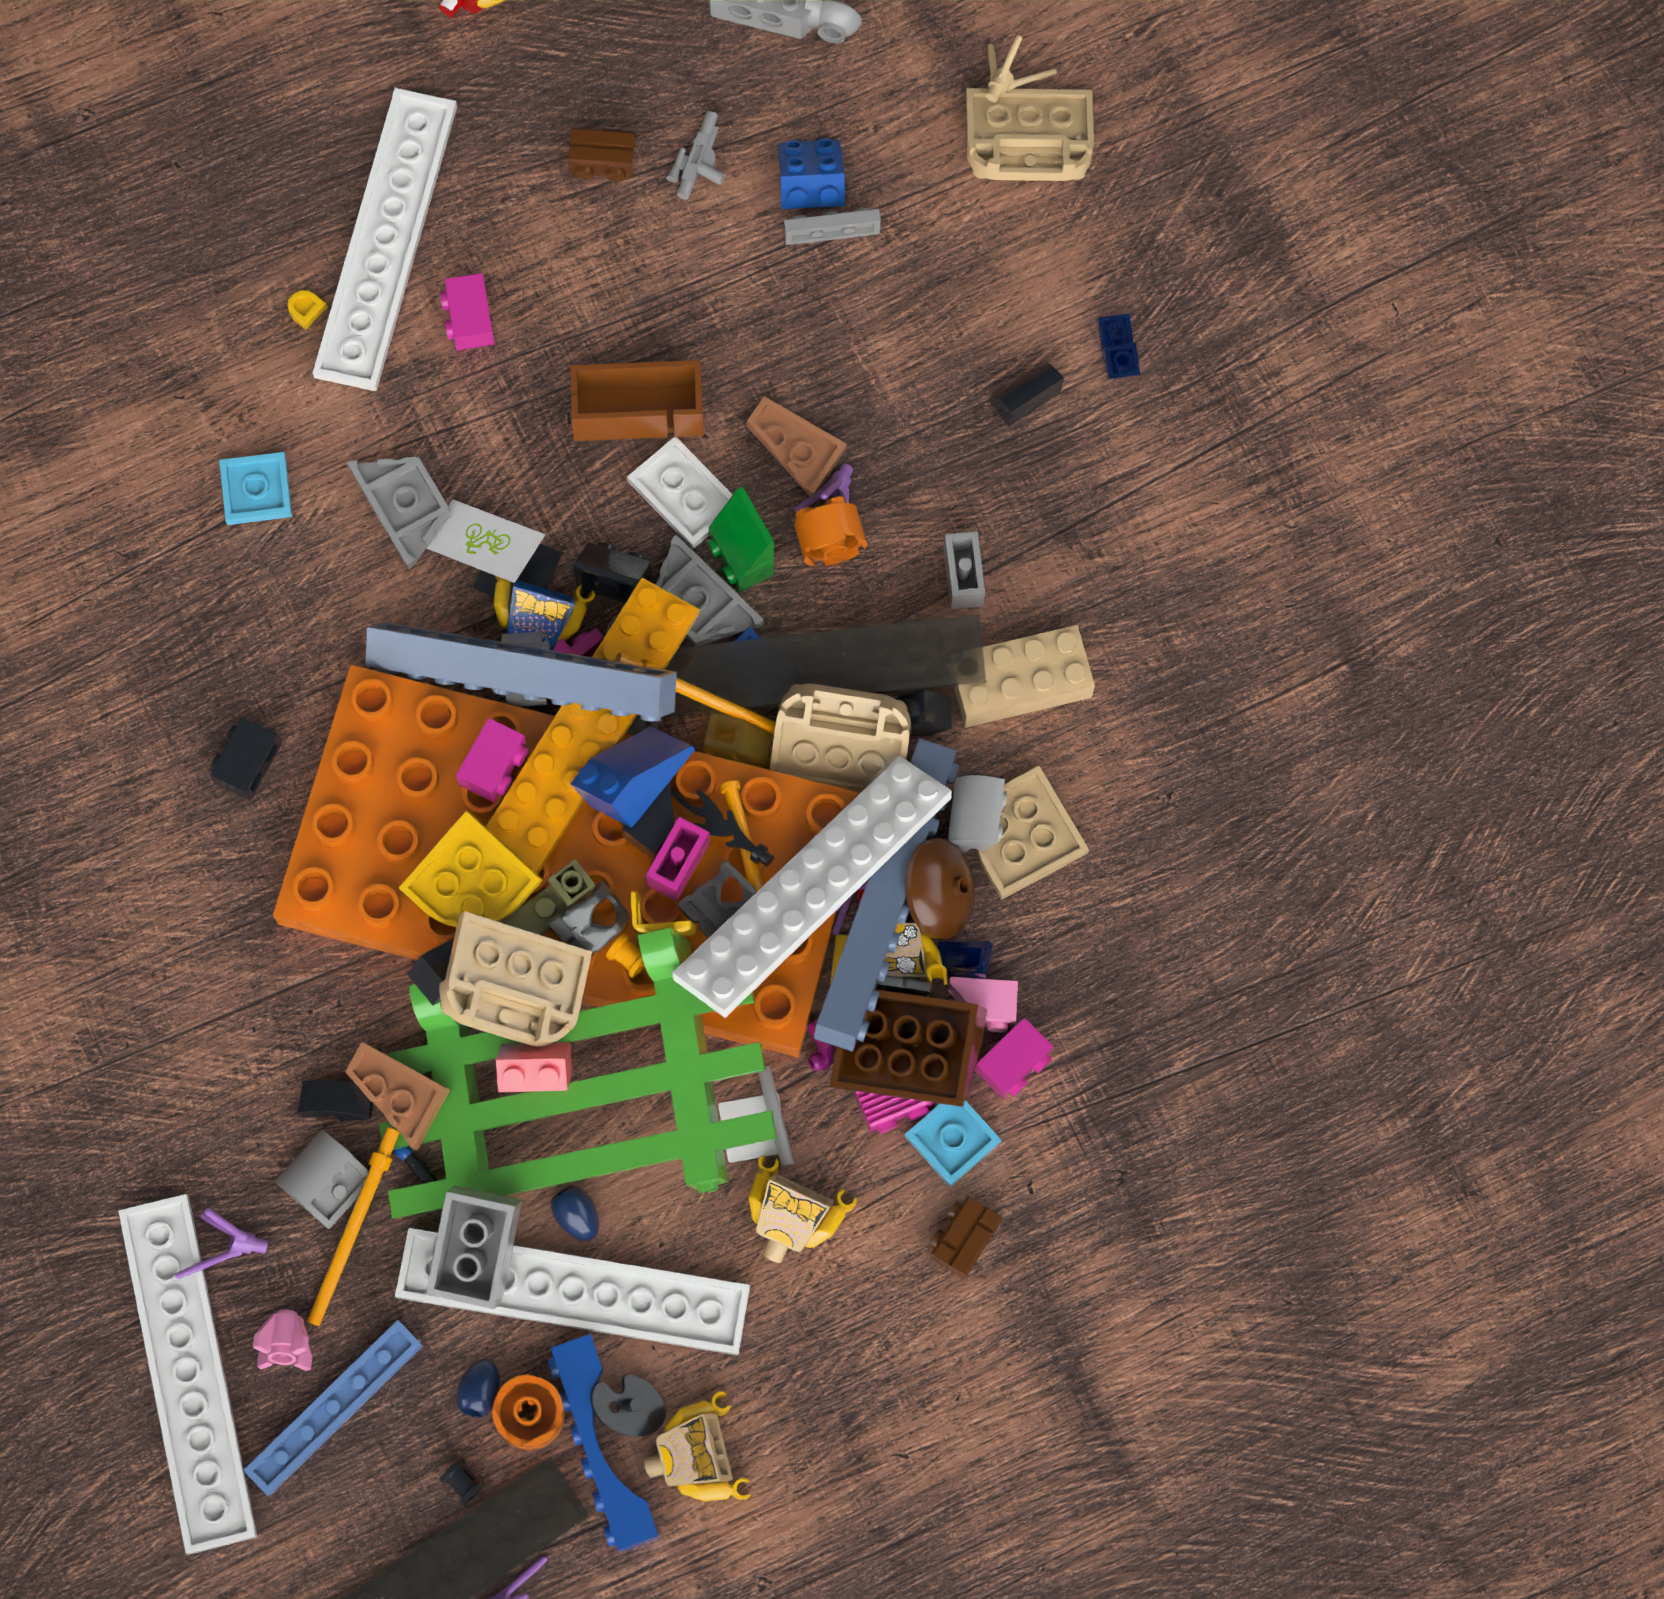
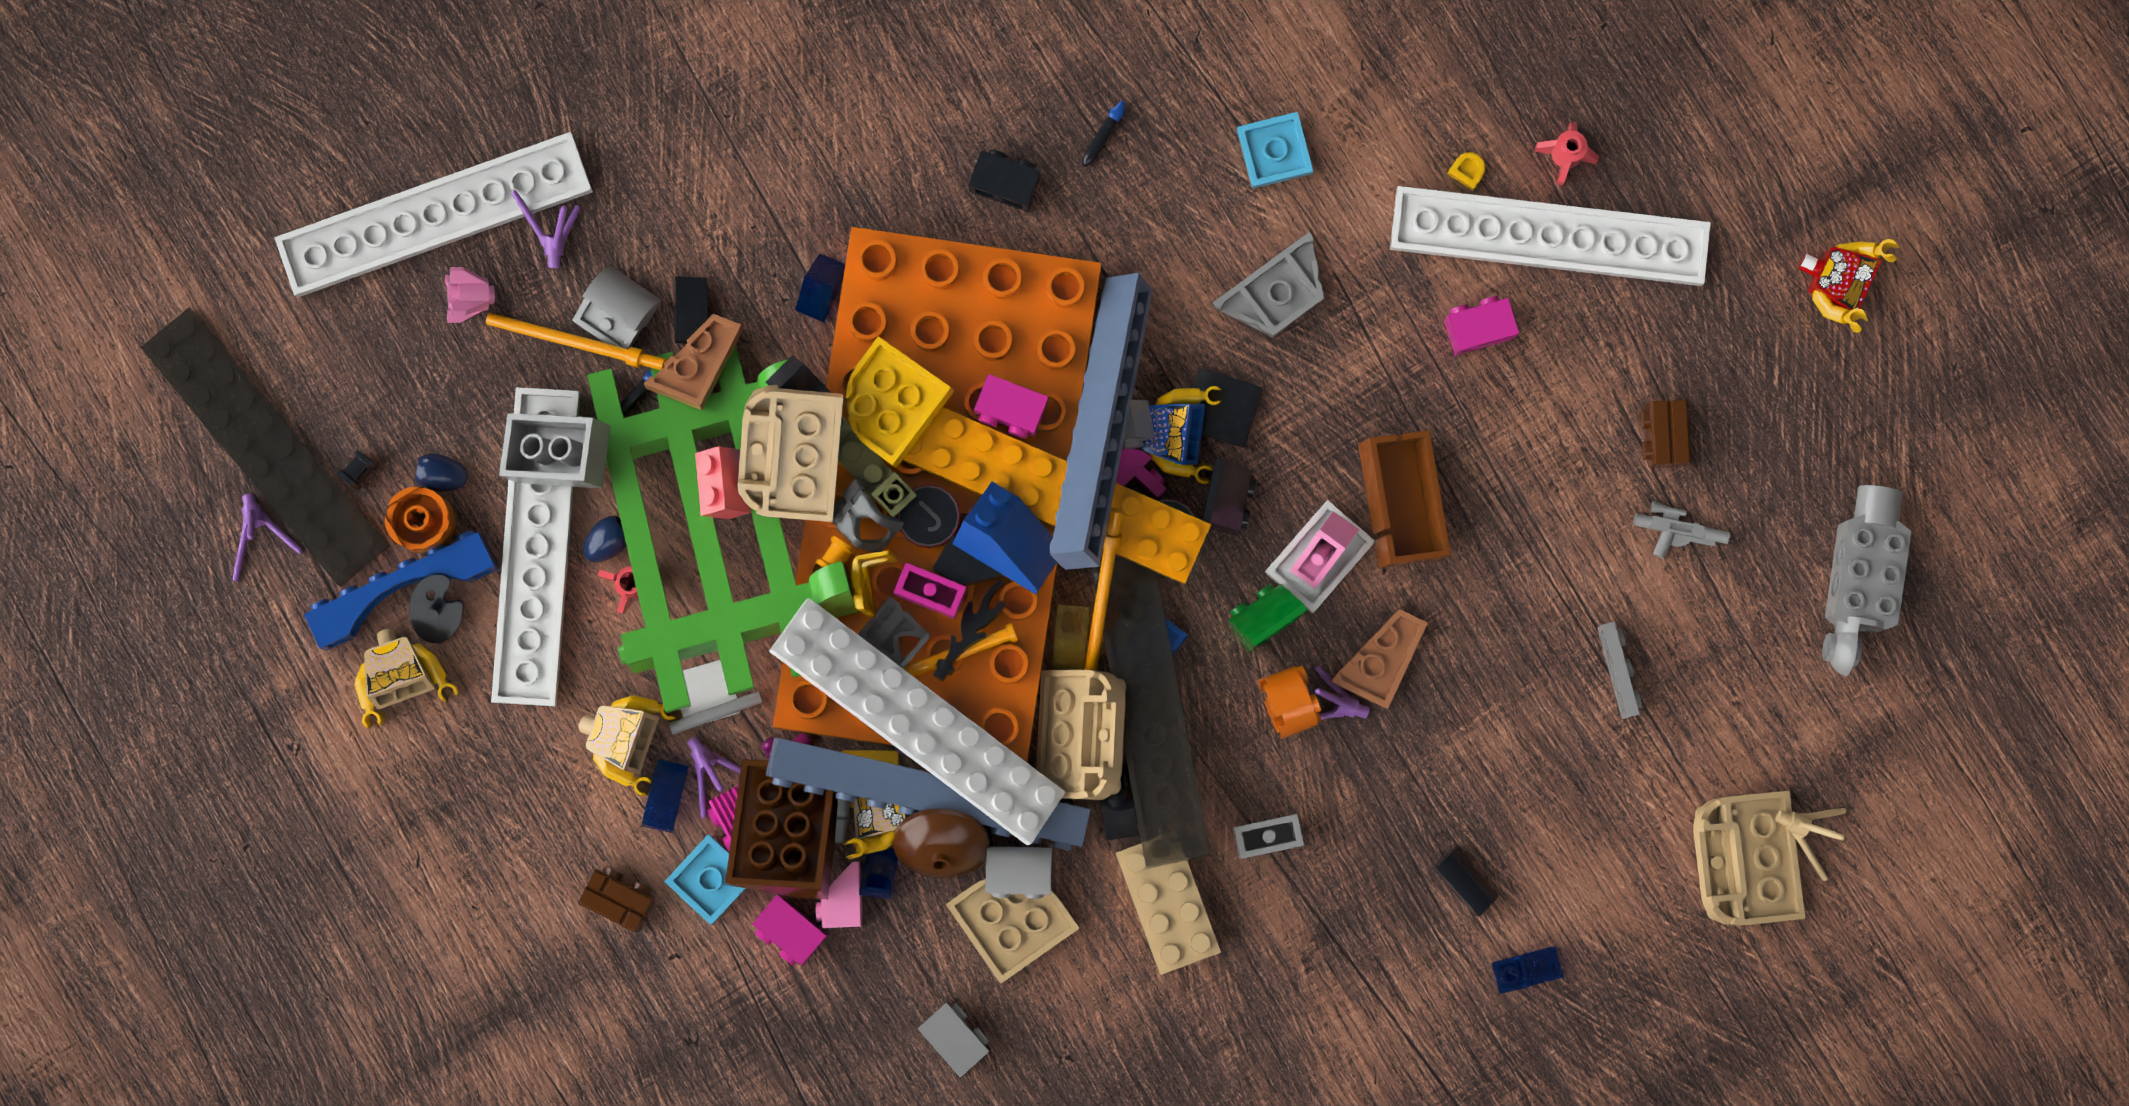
camera: 90 degrees right, 10 degrees up
(212, 658) = (1103, 134): none -> black piece
(301, 209) = (1563, 156): none -> coral brick
(332, 961) = (820, 288): none -> clear blue slope
(333, 1408) = (413, 347): medium blue plate -> none
(486, 541) = (1242, 373): white sticker -> none
(600, 853) = (930, 517): none -> black tile
(632, 1199) = (622, 582): none -> coral brick
(679, 480) = (1324, 550): none -> bright pink slope
(720, 607) = (1214, 584): light grey wing -> none
(811, 174) = (1675, 643): blue bracket -> none
(824, 1131) = (704, 762): none -> medium lavender plant
(859, 1175) = (665, 796): none -> clear blue slope
(1140, 902) = (955, 1038): none -> light grey brick

